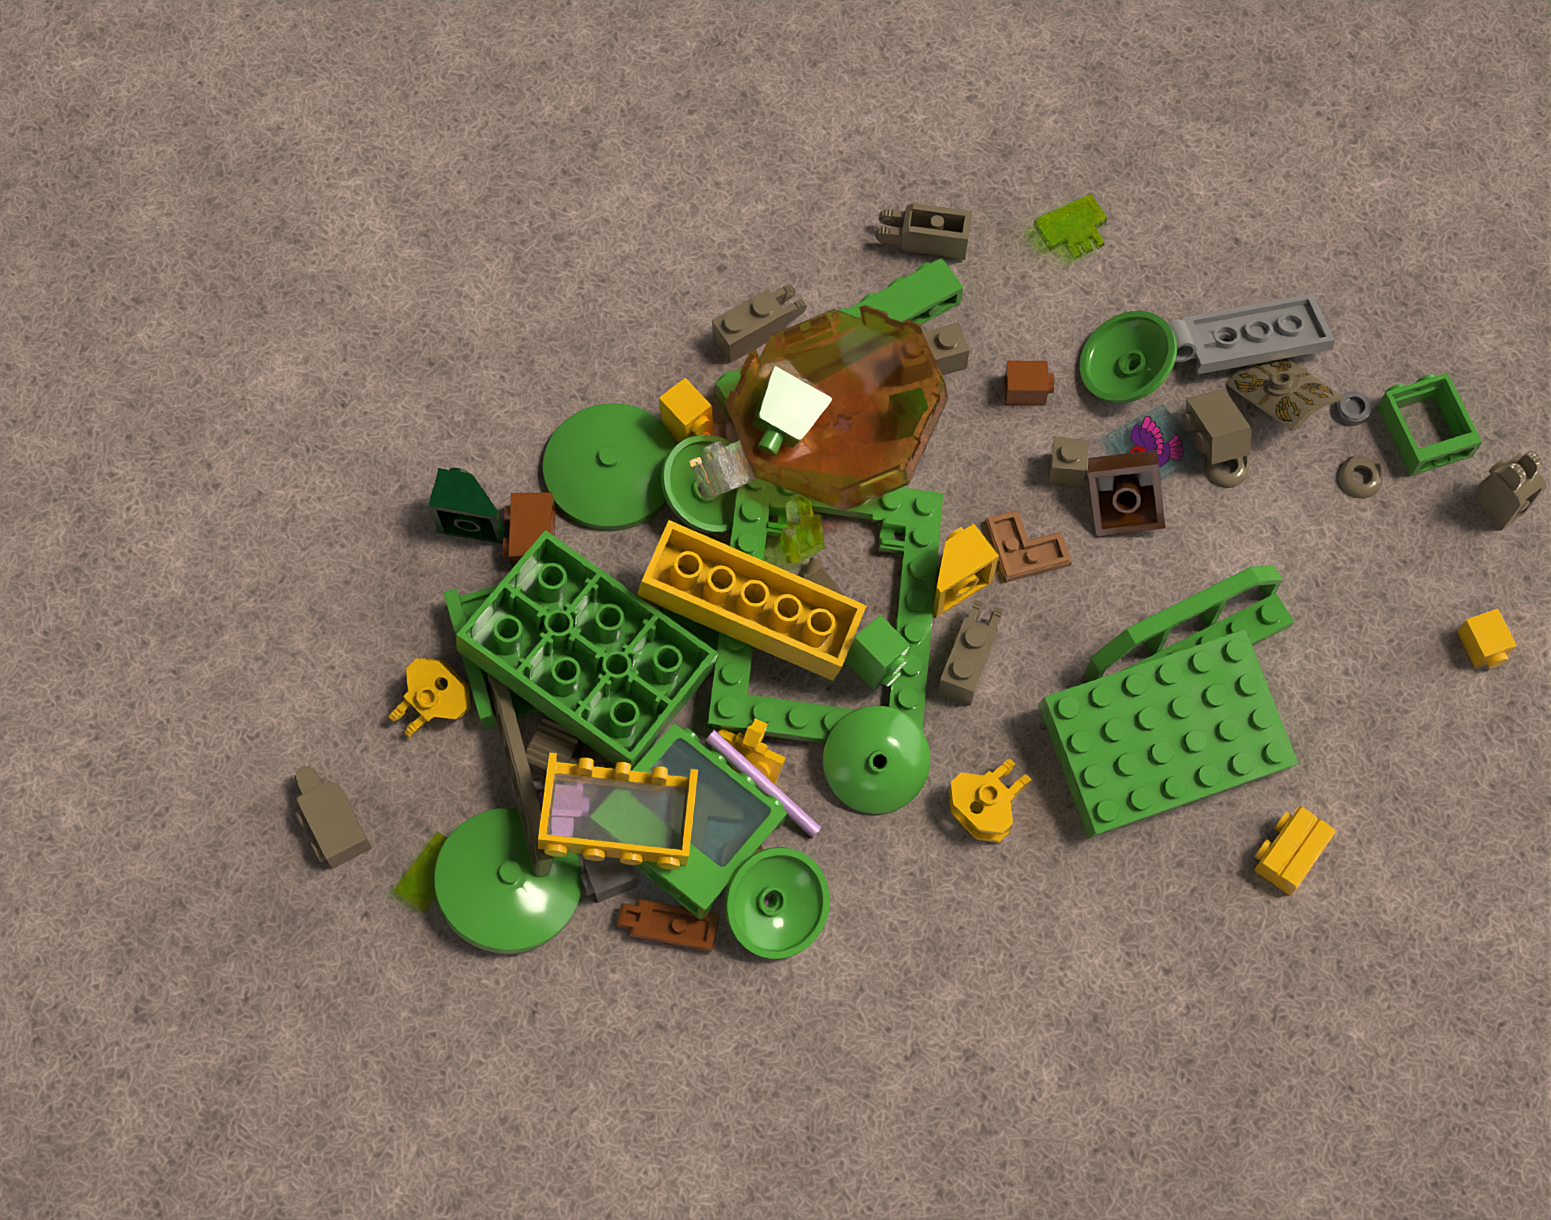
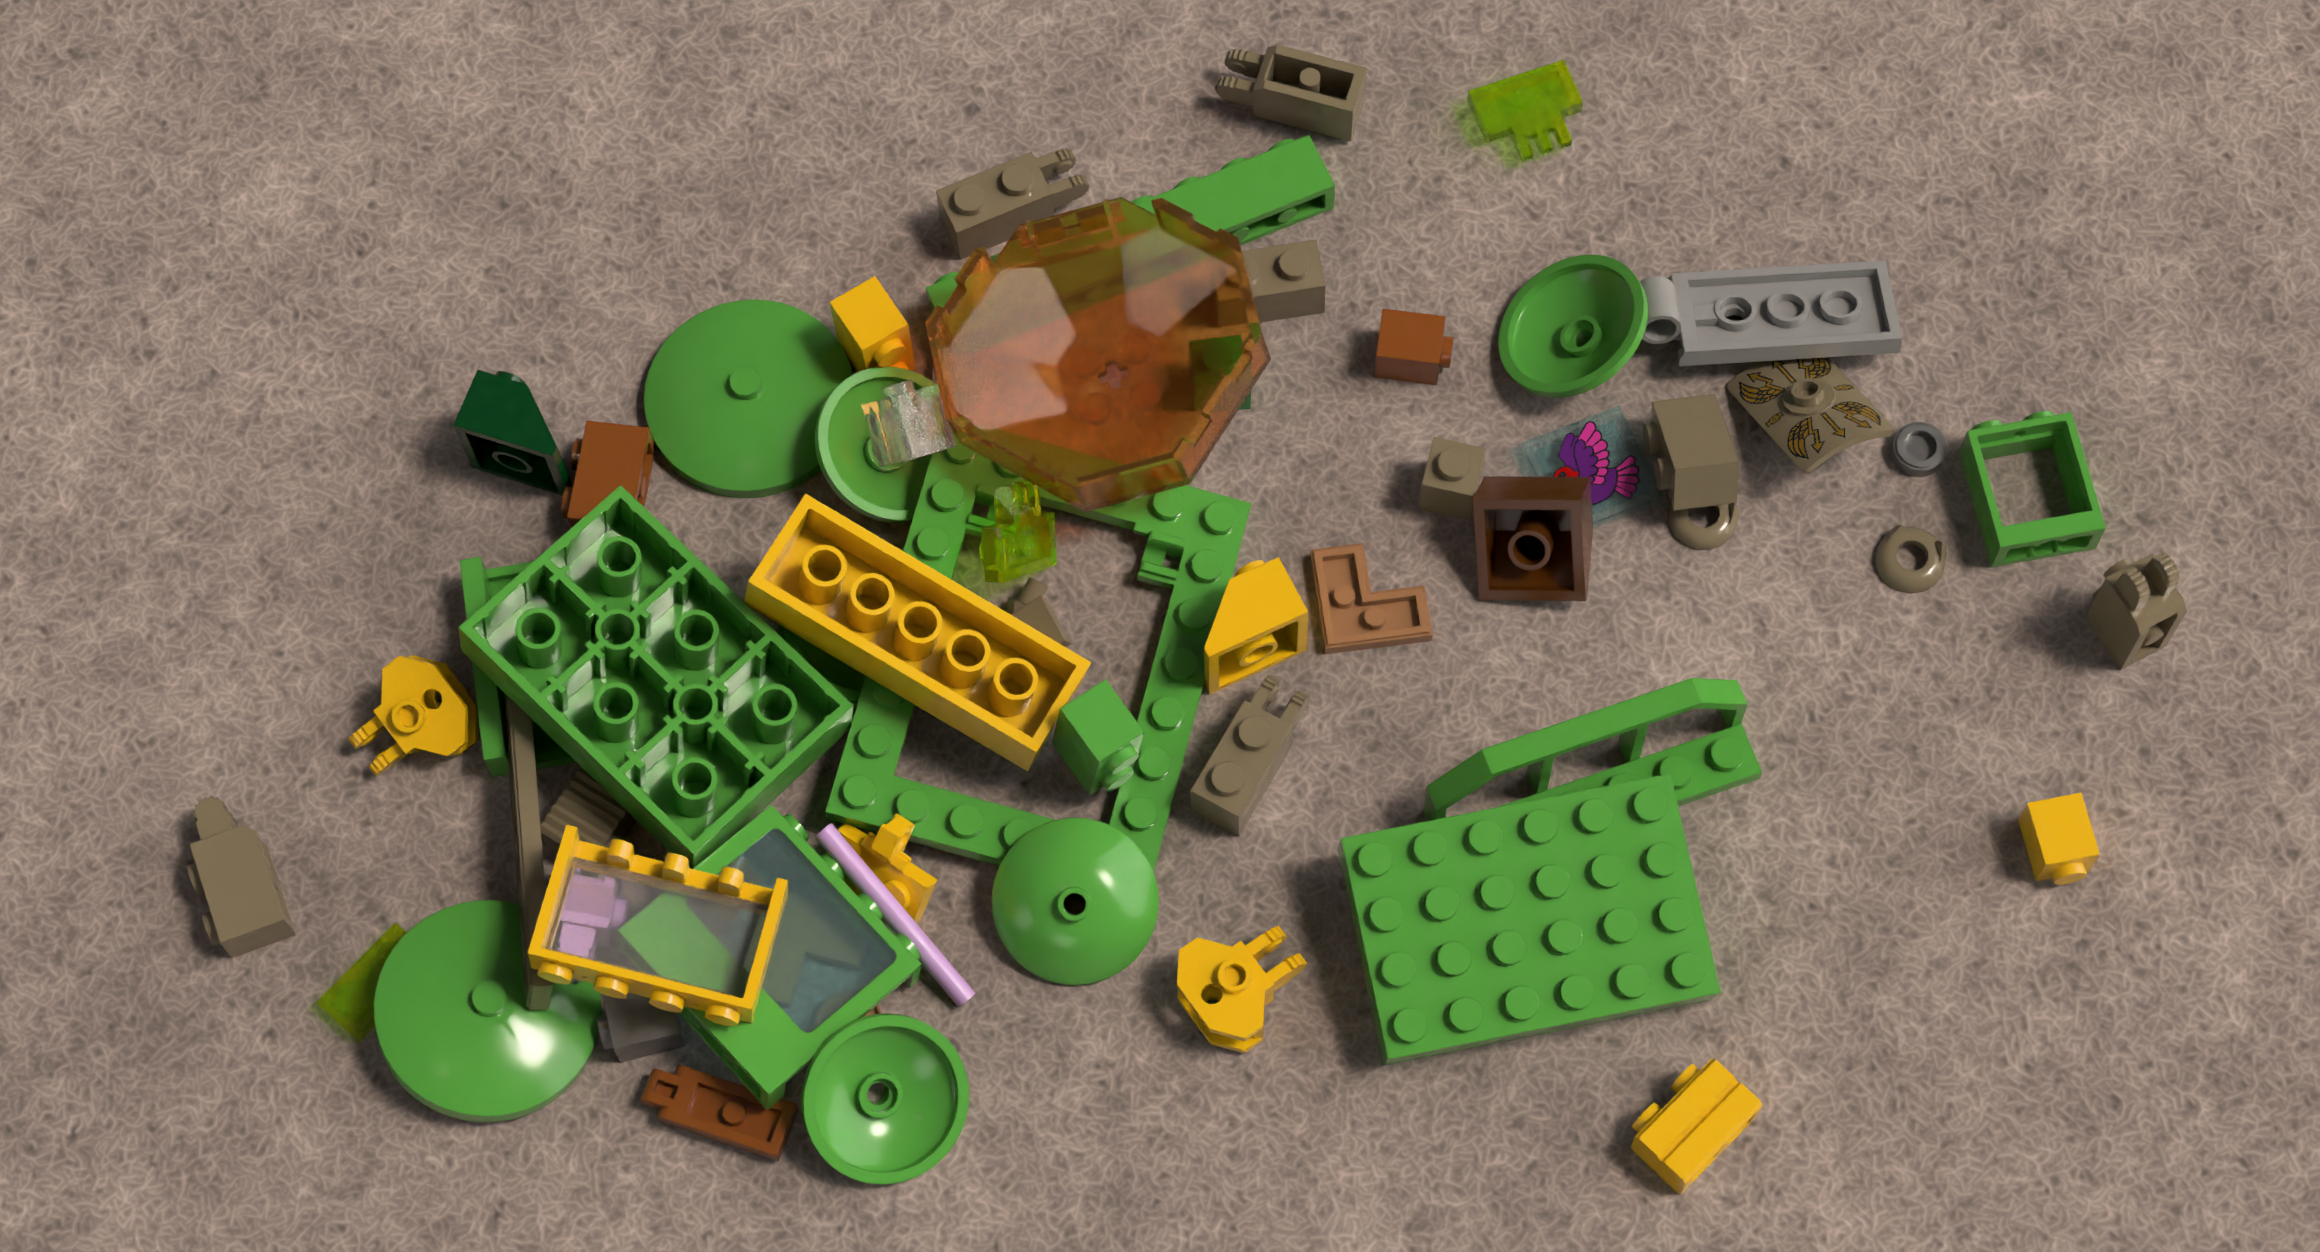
camera: 10 degrees right, 0 degrees up
(786, 410) = (1022, 347): torso -> none

